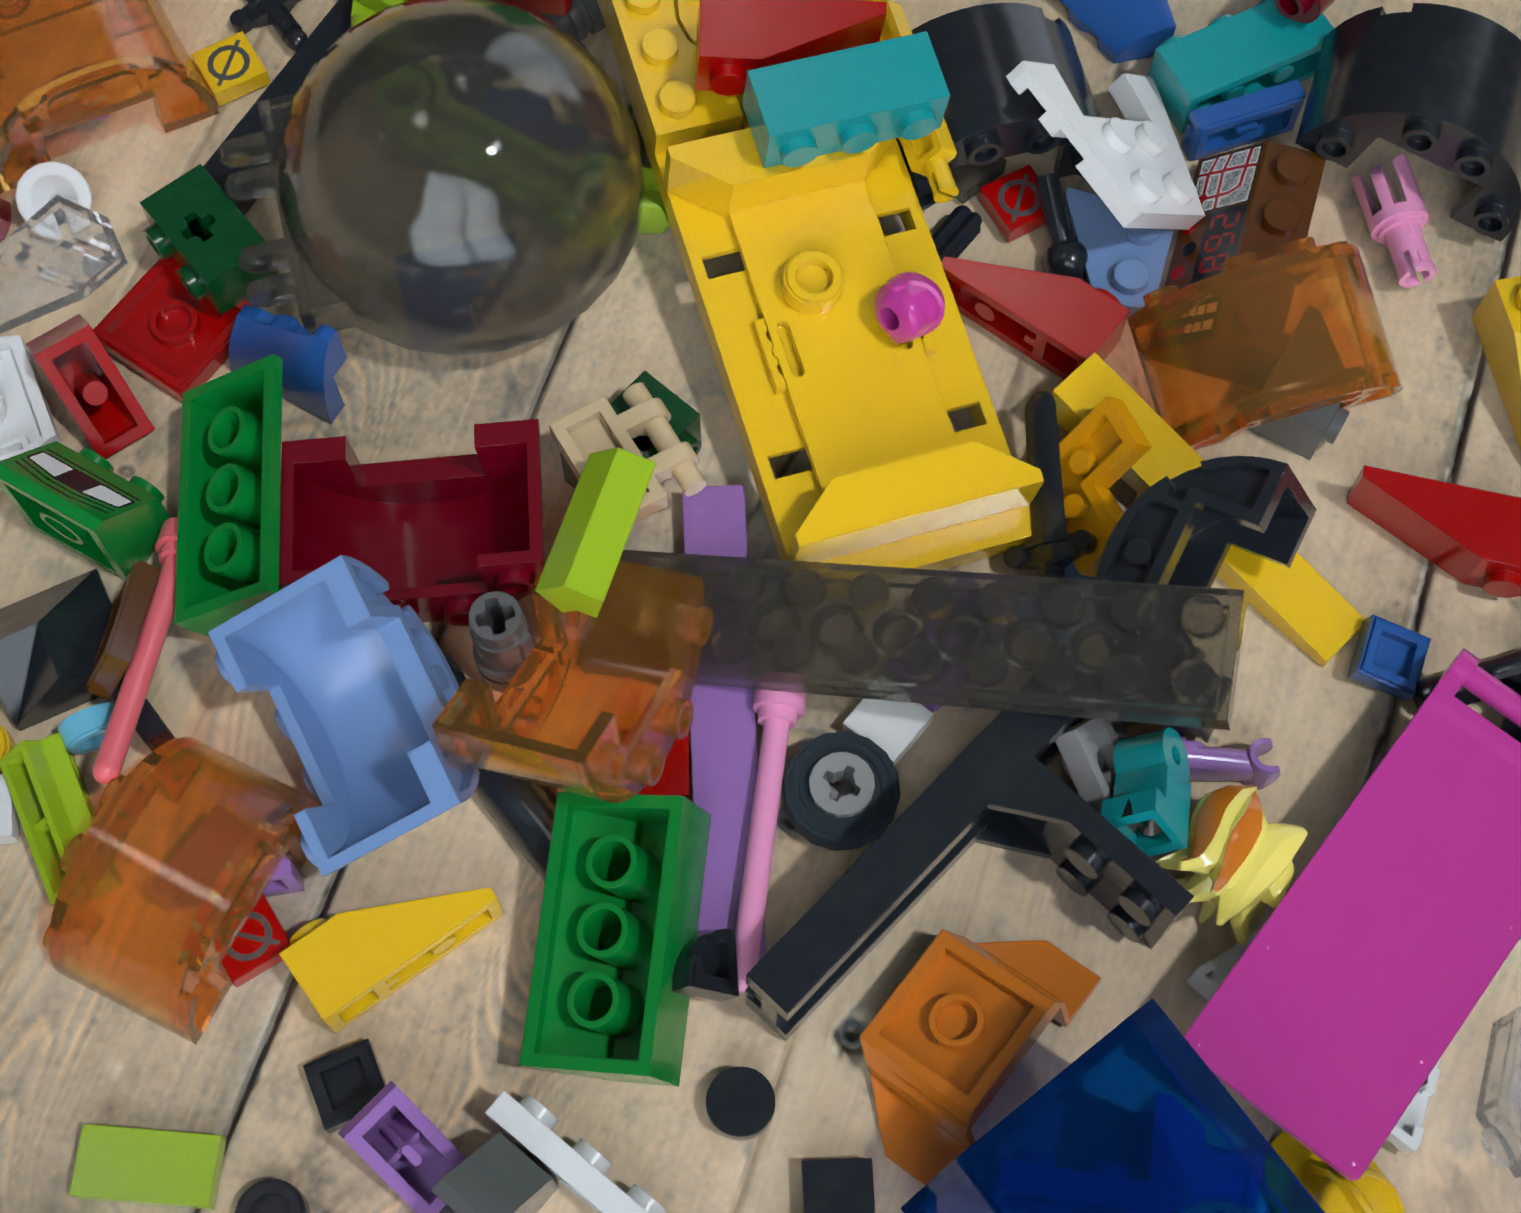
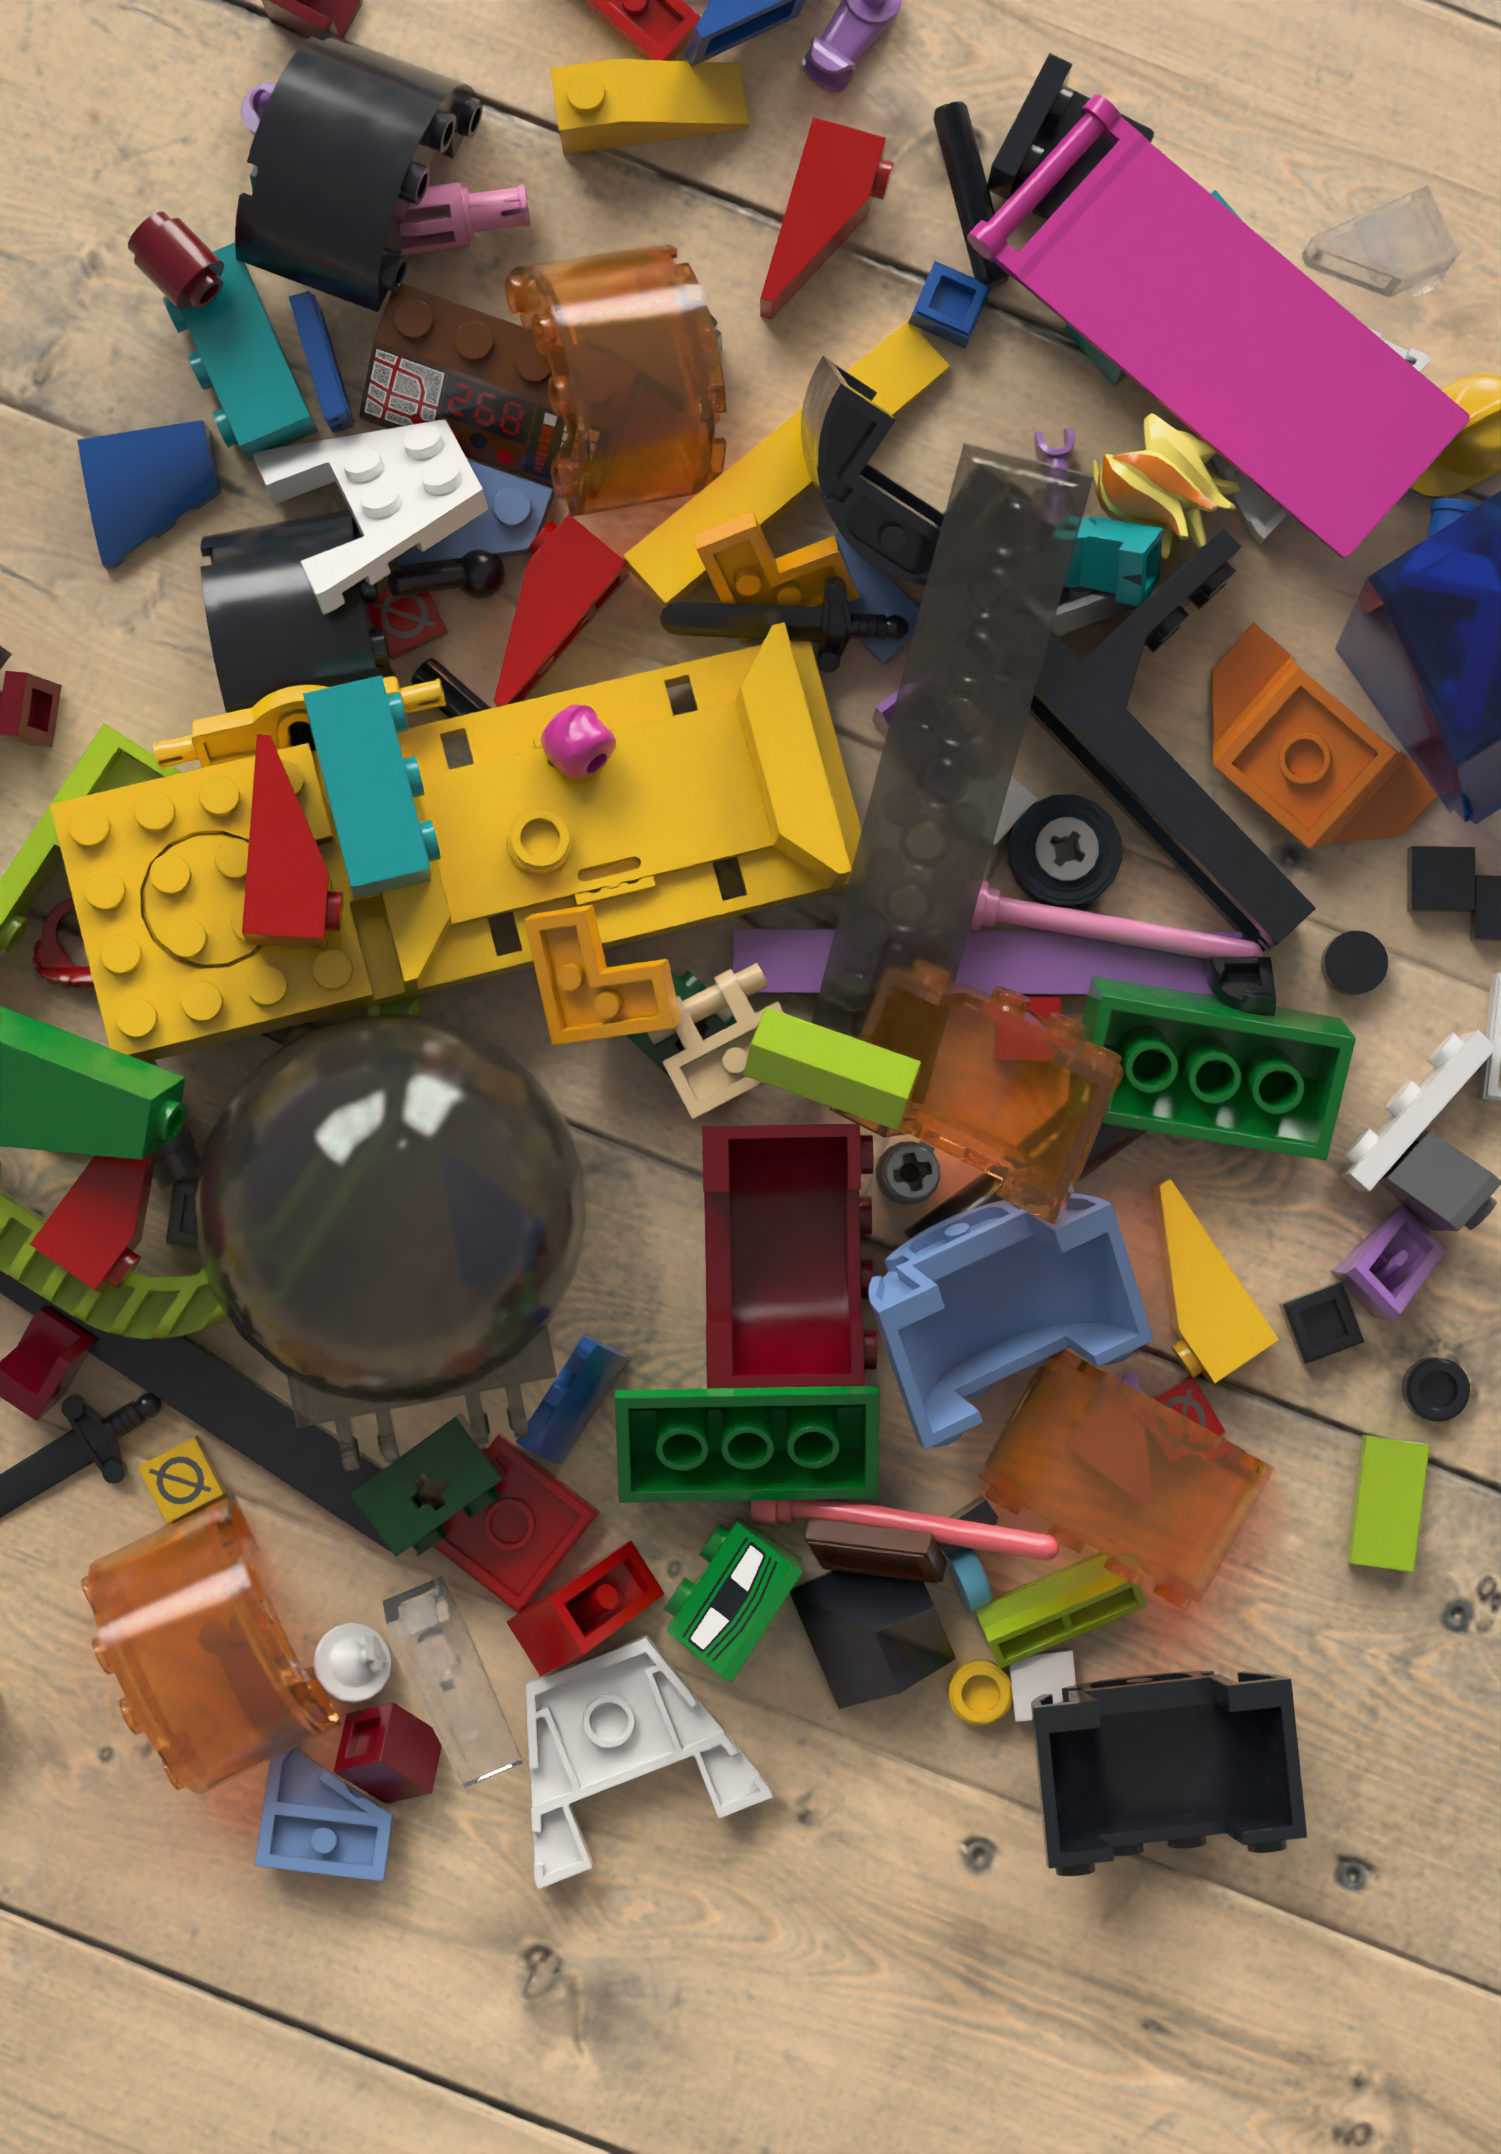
camera: 85 degrees left, 20 degrees up
(667, 324) = (583, 994): none -> light orange plate

